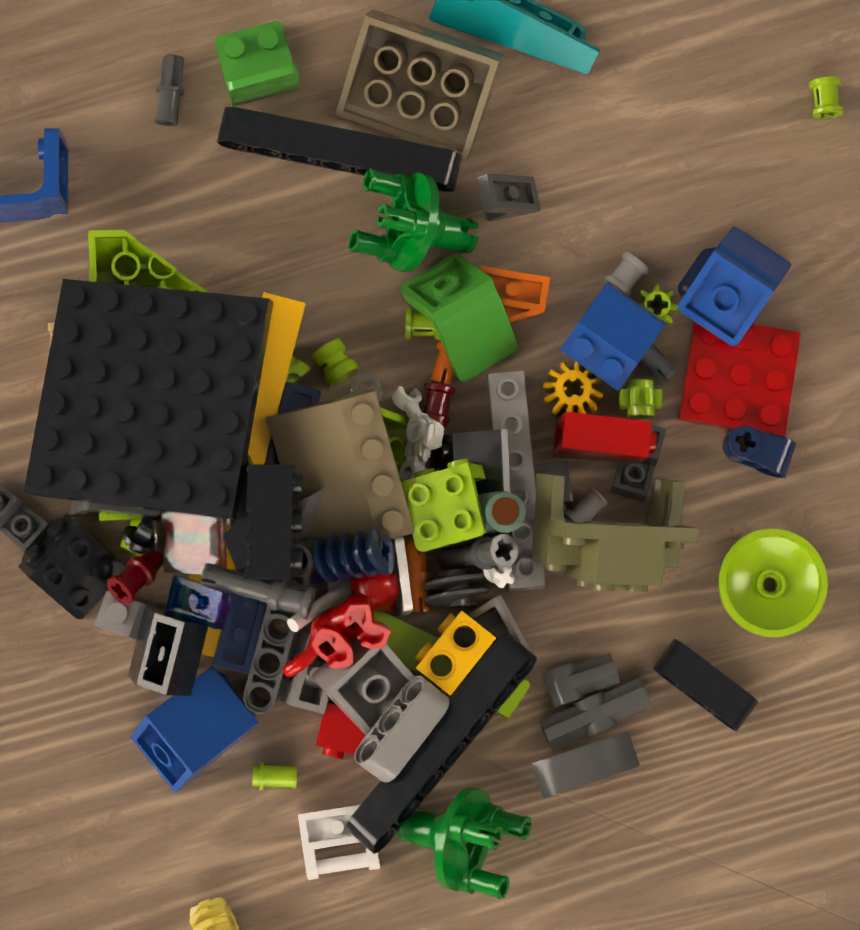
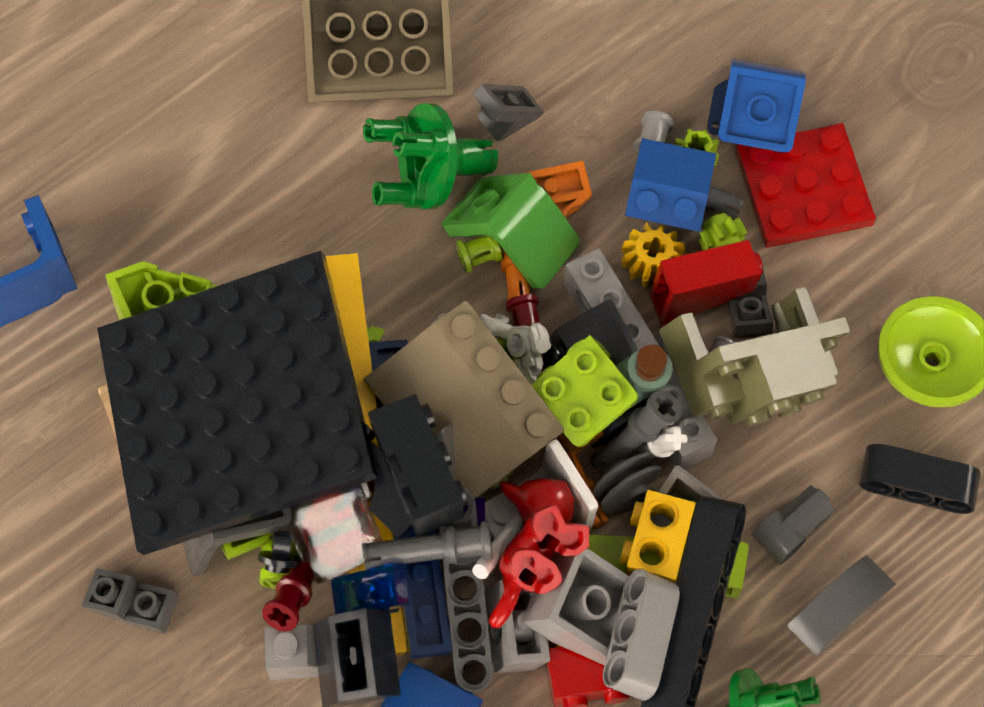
camera: 20 degrees left, 15 degrees down
(71, 566) = (215, 624): black bracket -> none
(170, 90) = (137, 138): dark grey axle -> none
(257, 63) = (215, 83): bright green piece -> none
(334, 147) = (307, 128): black beam -> none
(334, 362) = (405, 318): lime wheel -> none
(353, 556) = (513, 476): dark blue piece -> none
(595, 714) = (825, 552): dark grey piece -> none
(765, 451) = (861, 238): dark blue piece -> none

